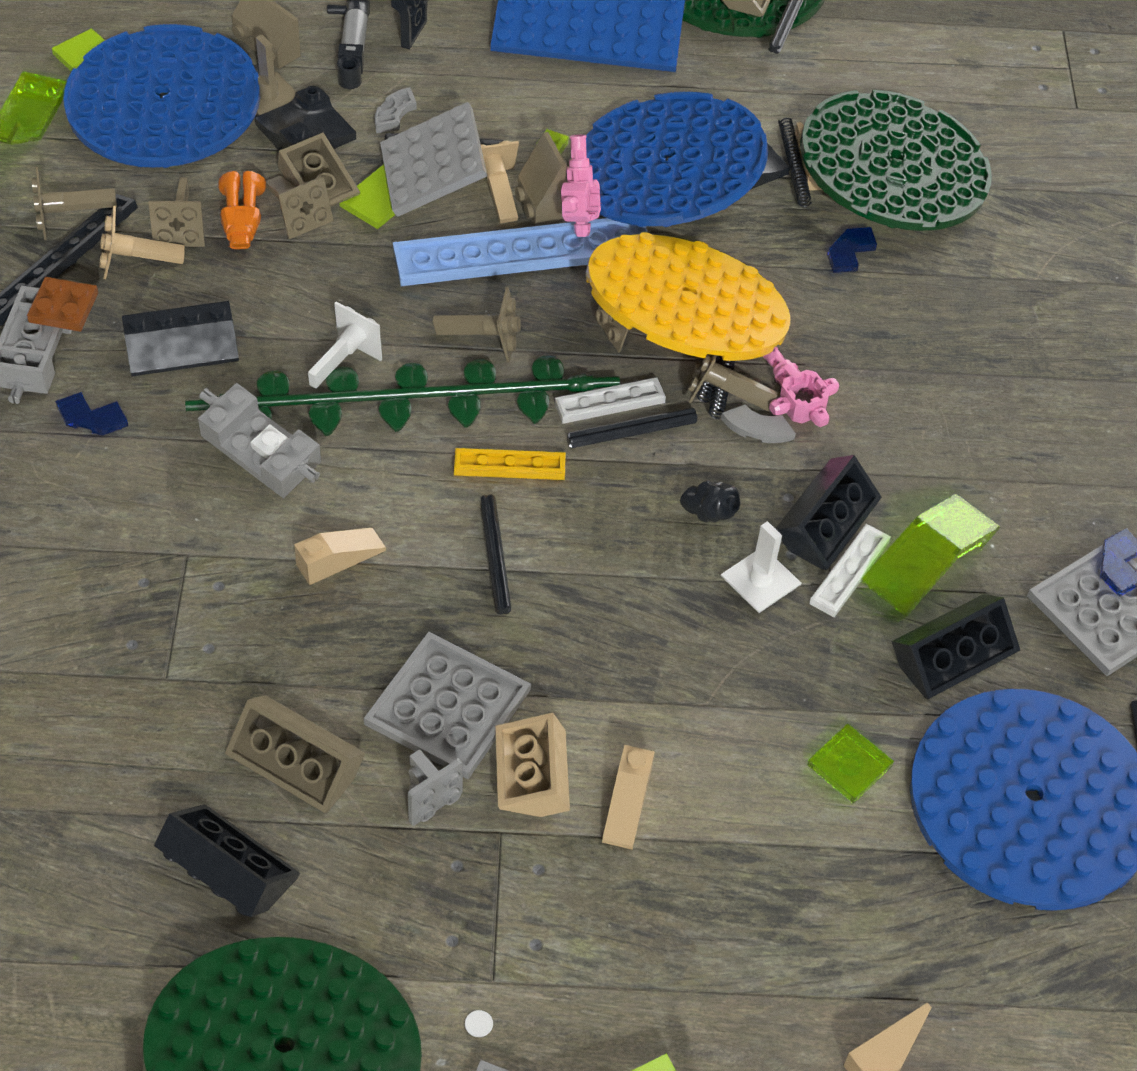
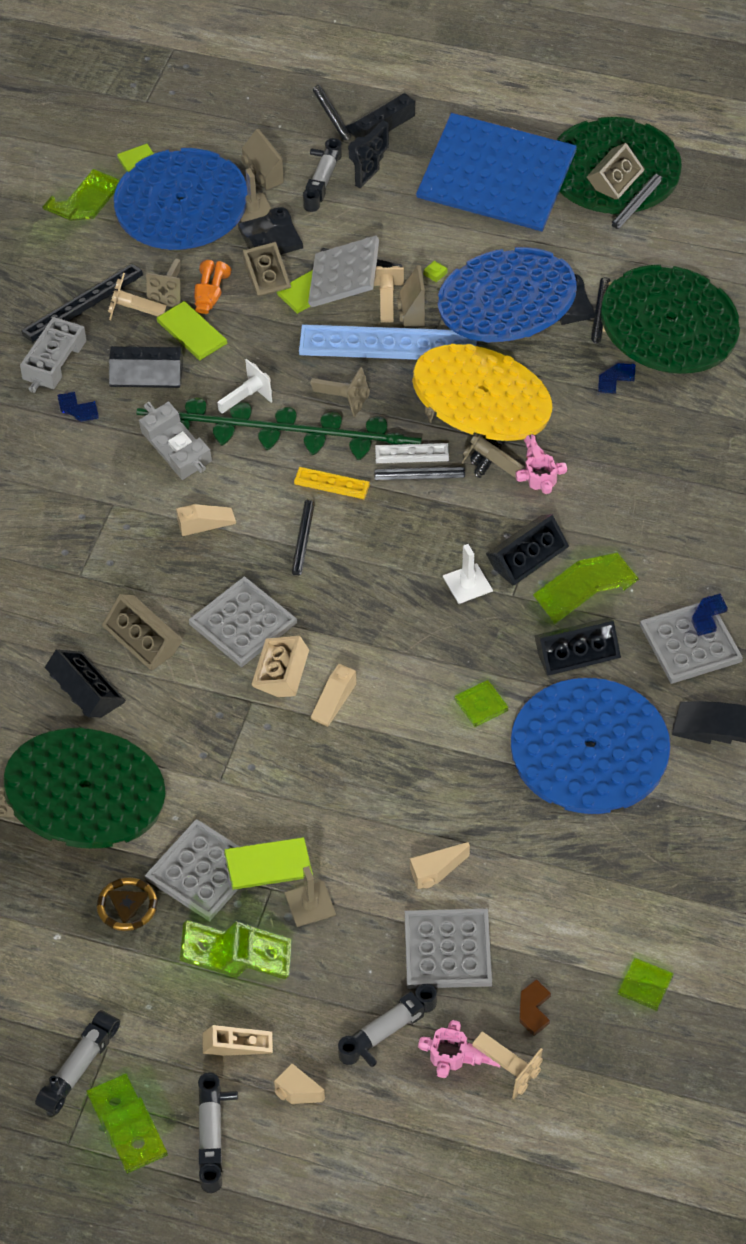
camera: 20 degrees right, 0 degrees up
(62, 304) = (75, 333): dark orange plate -> none
(68, 201) = (97, 264): dark tan piece -> none
(232, 275) = (191, 330): none -> lime tile
(302, 206) = (249, 290): dark tan piece -> none
(393, 109) = (333, 231): light grey tile -> none
(432, 788) = (215, 666): light grey bracket -> none
(478, 1023) = (203, 802): white sticker -> none
(581, 192) = (432, 312): bright pink piece -> none
(711, 501) = (452, 528): black head -> none
(766, 428) = (509, 489): light grey tile -> none
(849, 570) = (524, 590): white tile -> none

